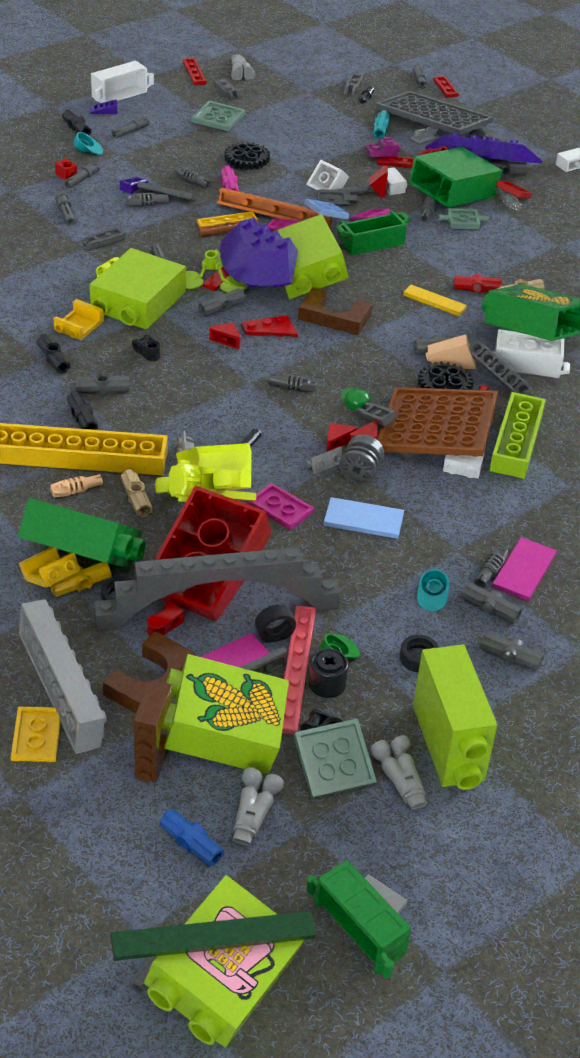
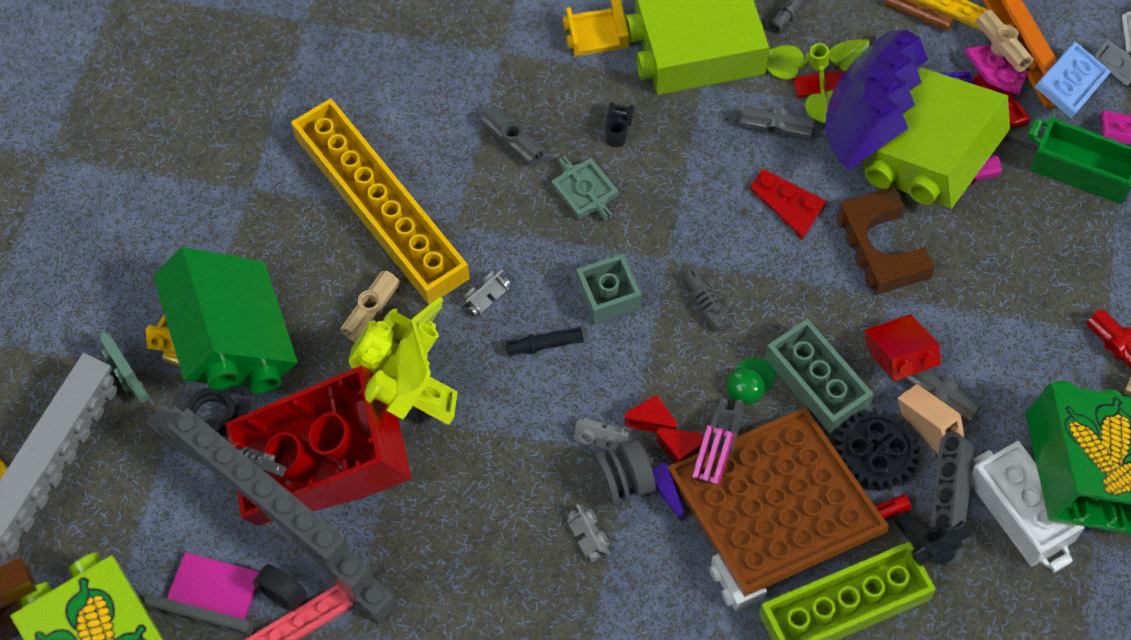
camera: 55 degrees right, 20 degrees up
(53, 353) = (516, 54): black piece -> none
(54, 599) = (121, 368): none -> sand green plate
(75, 485) = (333, 244): light nougat hinge -> none
(82, 411) = (450, 156): black piece -> none
(160, 651) = (155, 541): reddish brown arch -> none
(166, 620) = (204, 482): red leg -> none
(170, 381) = (585, 188): none -> sand green plate
(225, 334) = (720, 174): red slope -> none
(245, 404) = (608, 289): none -> sand green brick
(277, 213) = (1004, 41): none -> tan piece
(282, 506) = (485, 449): dark pink tile -> none
(364, 517) = (545, 544): light blue tile -> none
(379, 410) = (703, 453): none -> dark pink tile
(384, 370) = (818, 376): none -> sand green brick
(385, 497) = (584, 523): none -> light grey hinge
(392, 456) = (667, 490): none -> dark purple slope
(403, 336) = (902, 347): none -> red brick
(435, 300) = (1036, 322): yellow tile -> none
(523, 383) = (934, 544): none -> black piece

